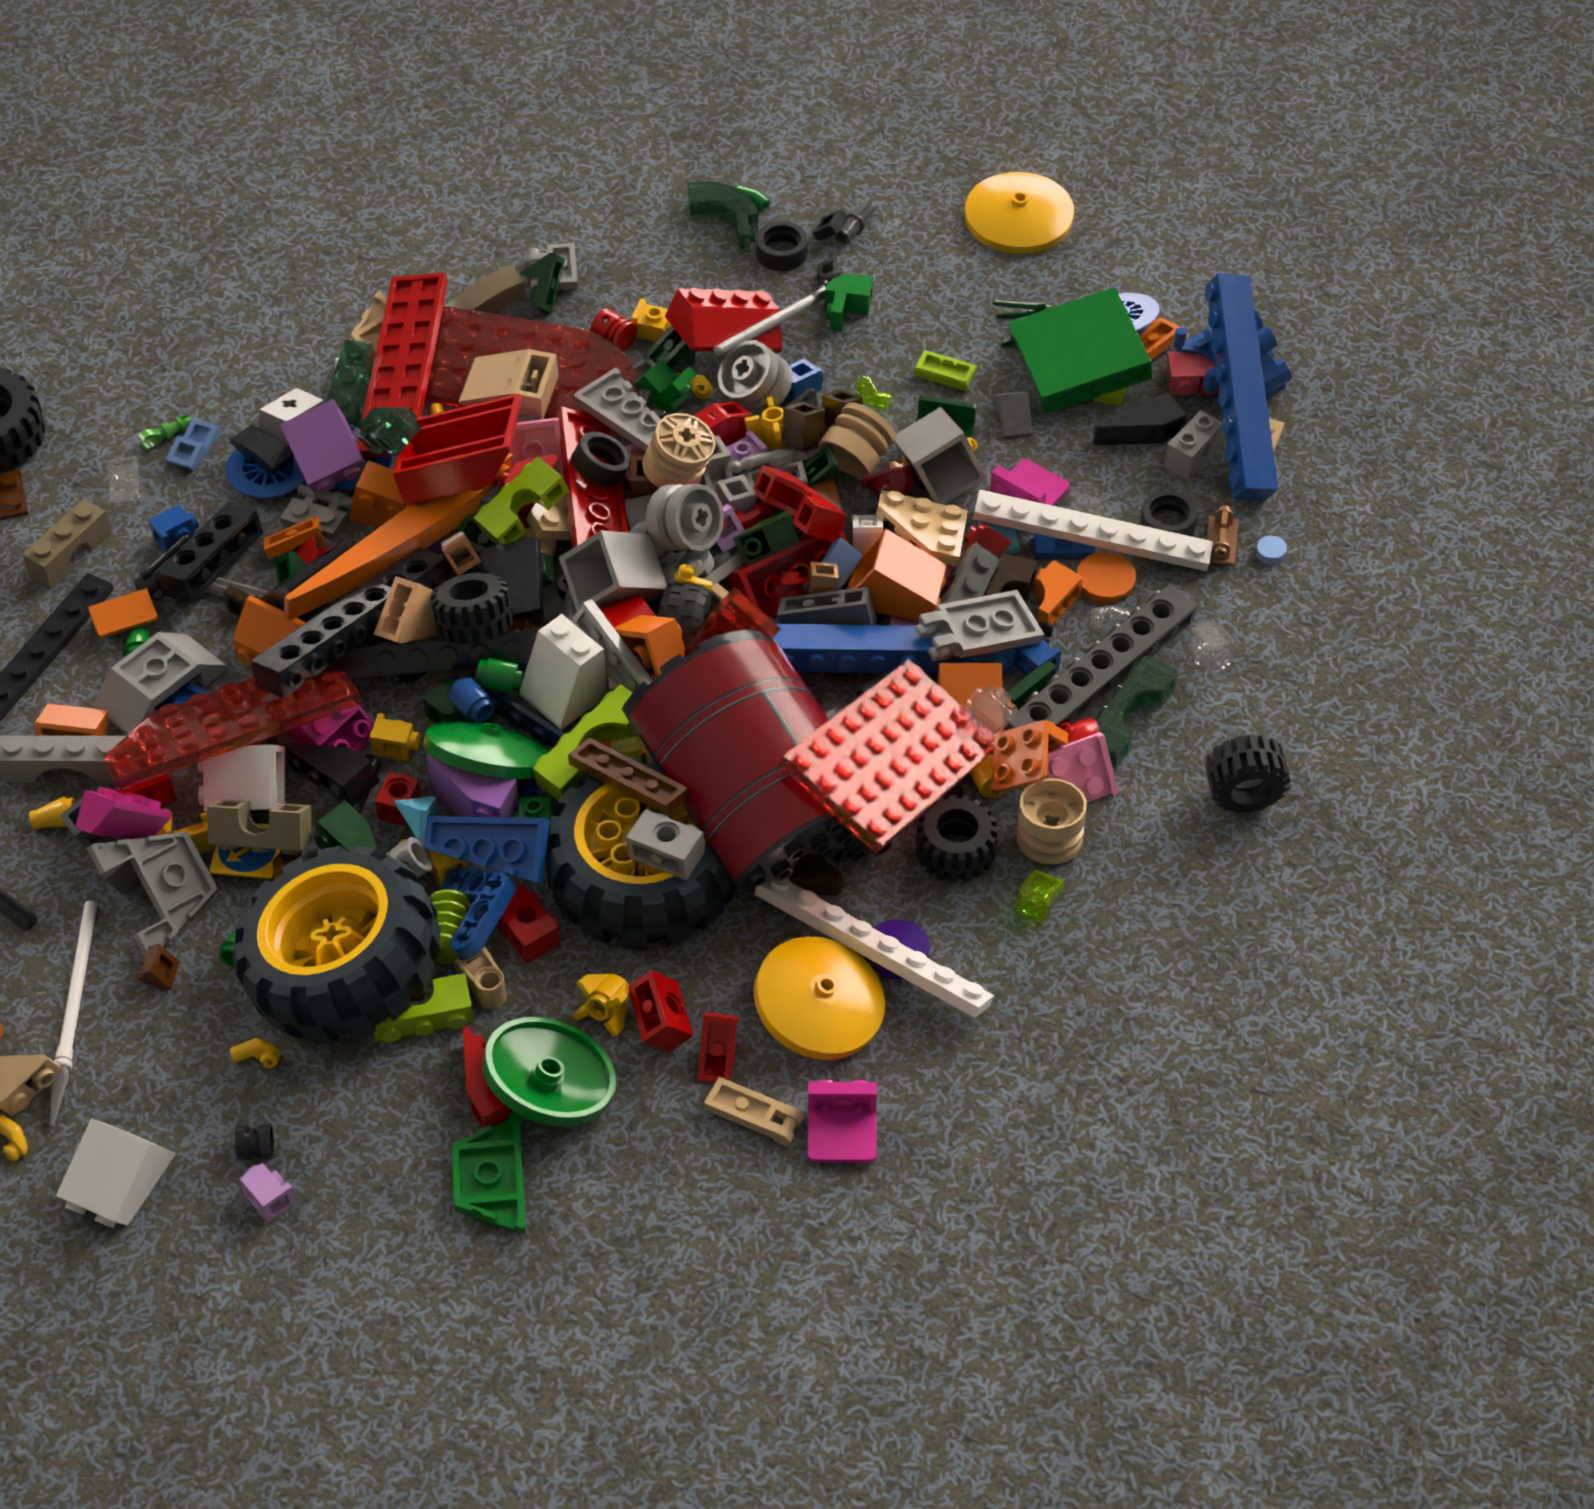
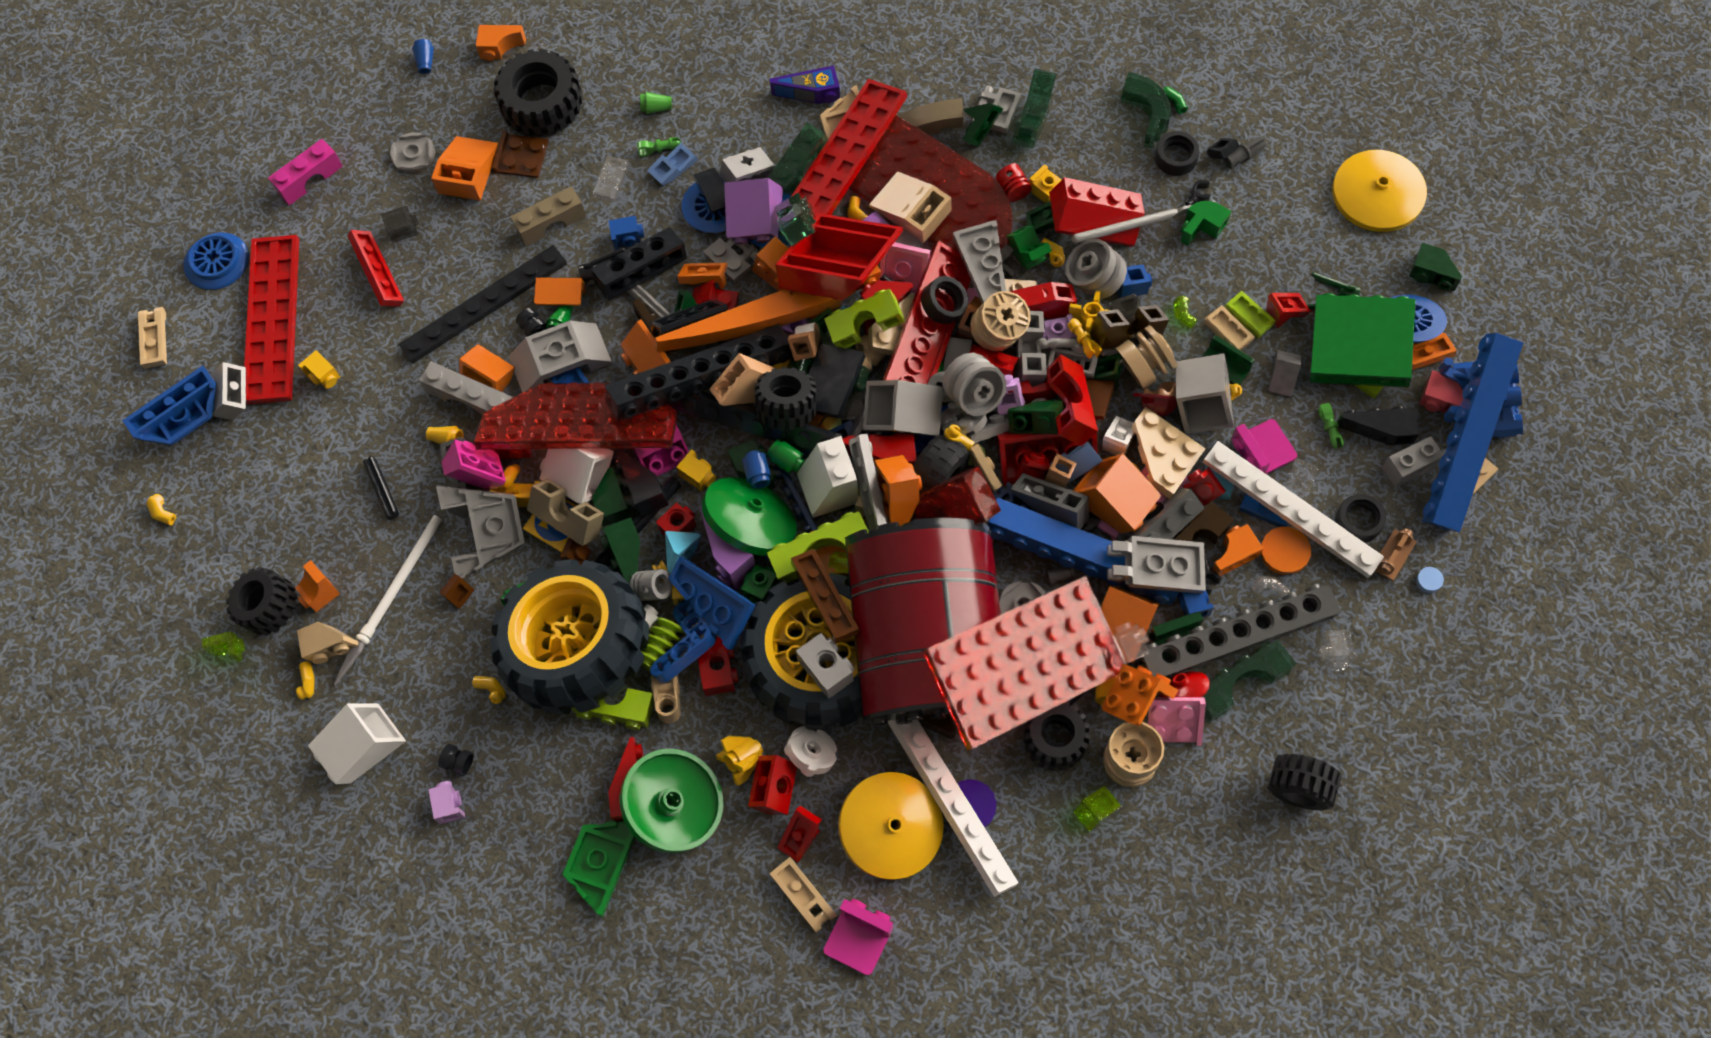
camera: 30 degrees right, 15 degrees up
(100, 658) = (530, 322): none -> black wheel
(137, 389) = (654, 103): none -> bright green cone
(301, 790) = (610, 499): none -> dark green slope
(320, 313) = (810, 86): none -> slope
(600, 248) = (1036, 109): none -> clear green arch
(688, 961) = (805, 760): none -> white plate
(778, 445) = (1083, 338): none -> yellow piece
(919, 384) = (1228, 328): none -> tan plate
(979, 349) = (1285, 306): none -> red slope
(1089, 444) = (1326, 415): none -> bright green piece
(1118, 261) = (1435, 267): none -> dark green slope

